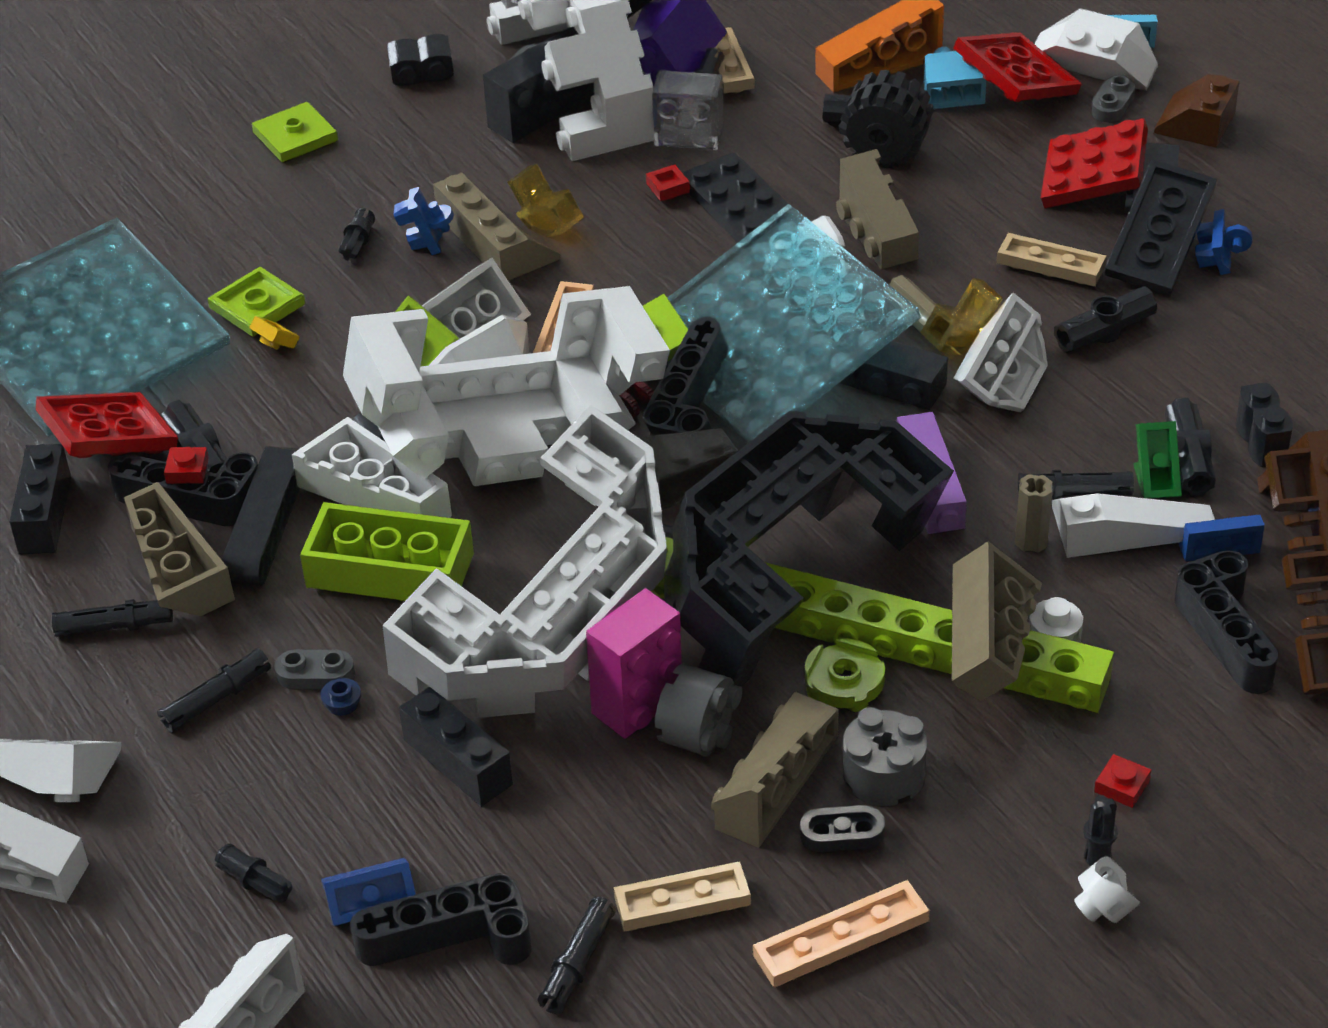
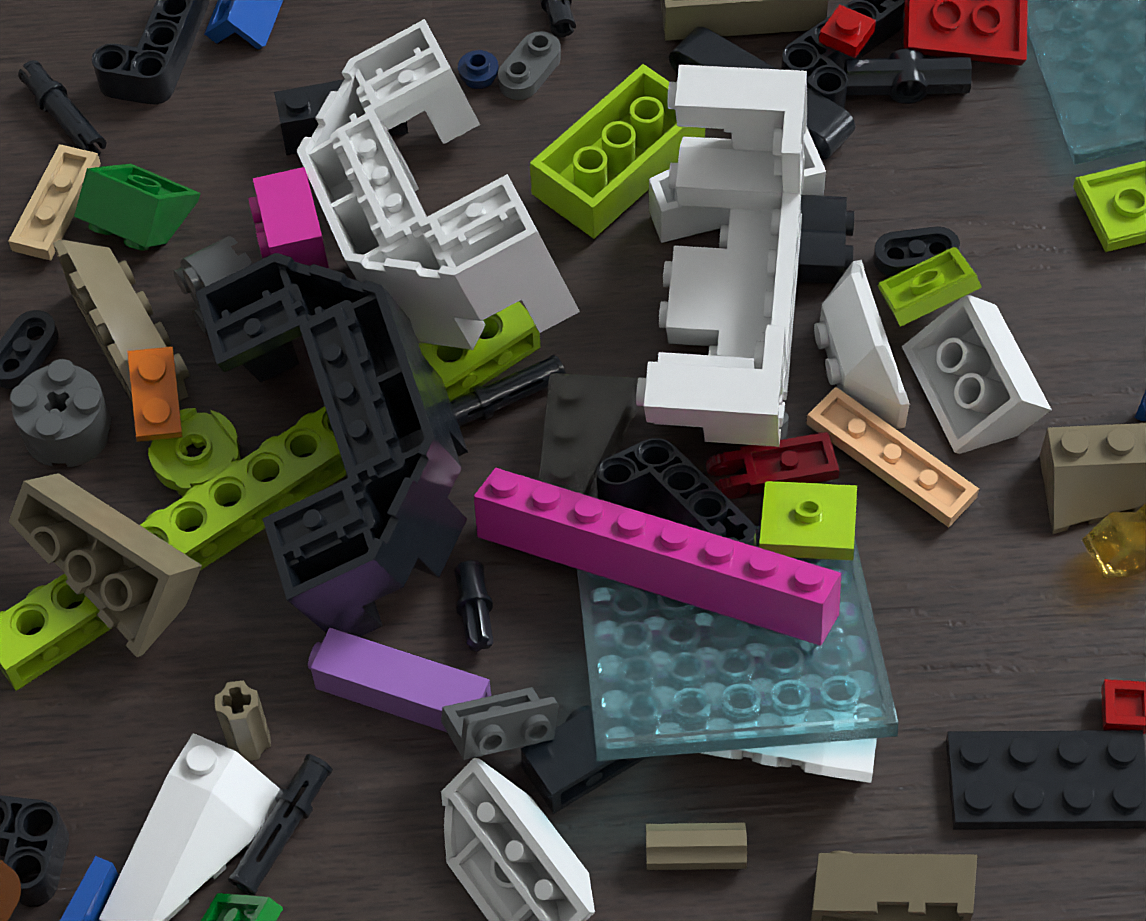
camera: 120 degrees right, 15 degrees up
(273, 333) = (1055, 196): yellow plate -> none
(645, 832) = (133, 204): none -> green slope
(742, 343) = (659, 555): none -> dark pink brick
(828, 691) = (154, 394): none -> orange plate
(928, 382) = (500, 722): none -> dark grey bracket
(955, 328) = (620, 865): clear yellow brick -> none
(1058, 619) = (101, 664): white piece -> none

